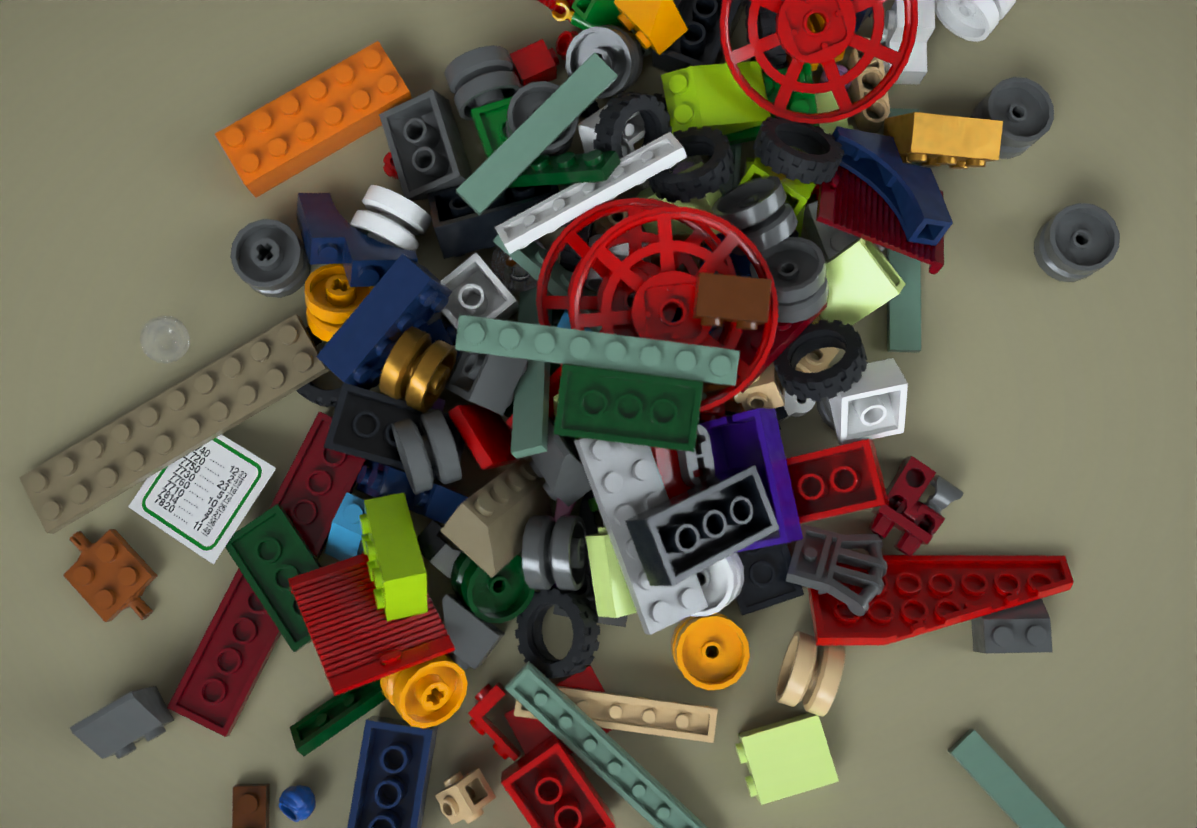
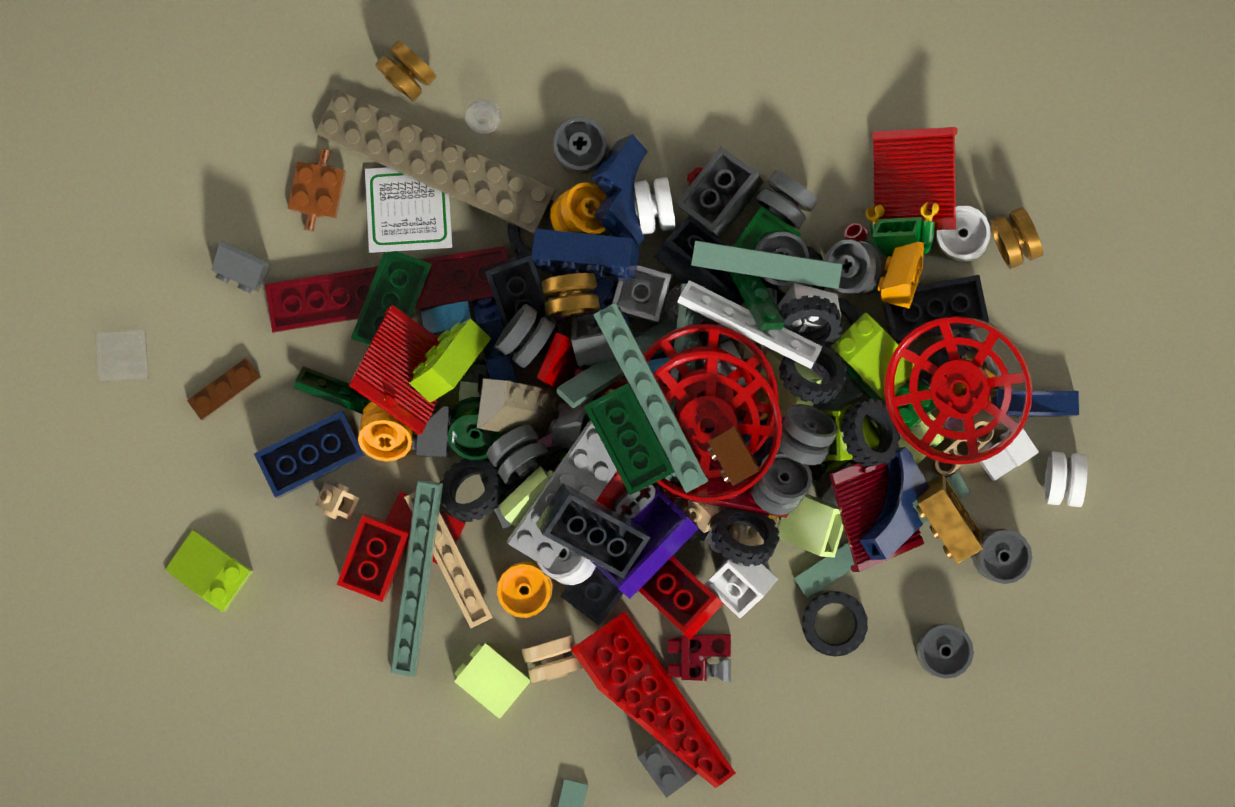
camera: 55 degrees right, 5 degrees up
(50, 385) = (402, 74): none -> pearl gold wheel
(297, 802) = (263, 403): blue piece -> none
(313, 119) = (690, 106): orange brick -> none
(486, 700) = (401, 474): red bracket -> none
(535, 63) = (825, 221): red brick -> none
(816, 567) = (625, 617): dark grey plate -> none
(996, 325) = (853, 605): none -> black tyre

